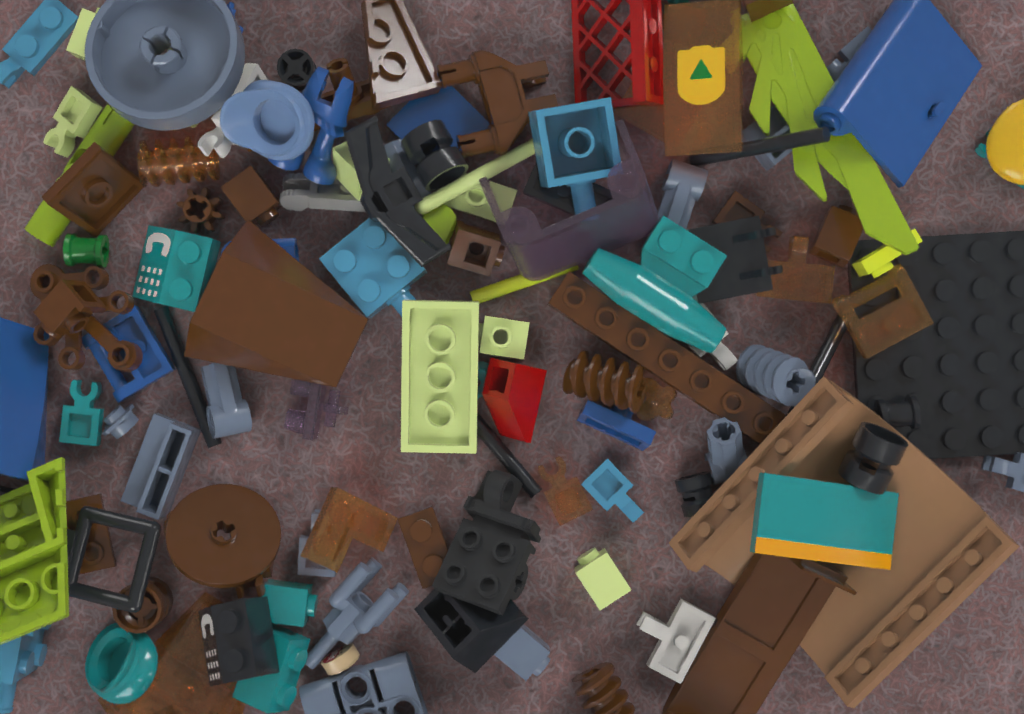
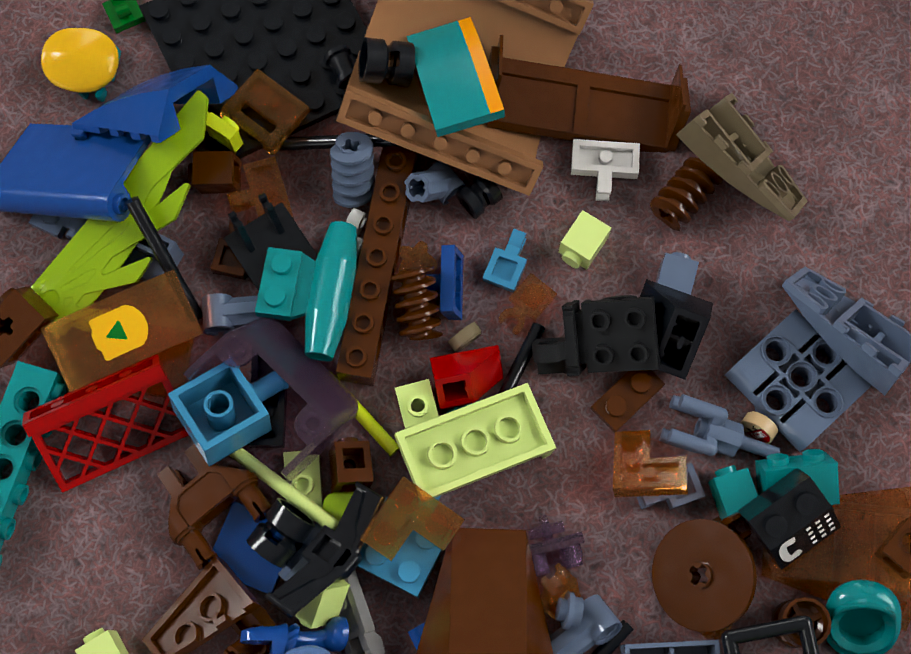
camera: 115 degrees left, 15 degrees down
(244, 394) = (569, 610): none -> sand blue plate
(268, 394) = (557, 587): none -> clear orange plate
(395, 283) = (409, 510): none -> clear orange plate
(554, 414) = (465, 337): none -> dark tan tile
(935, 189) = (150, 105): none -> blue wedge

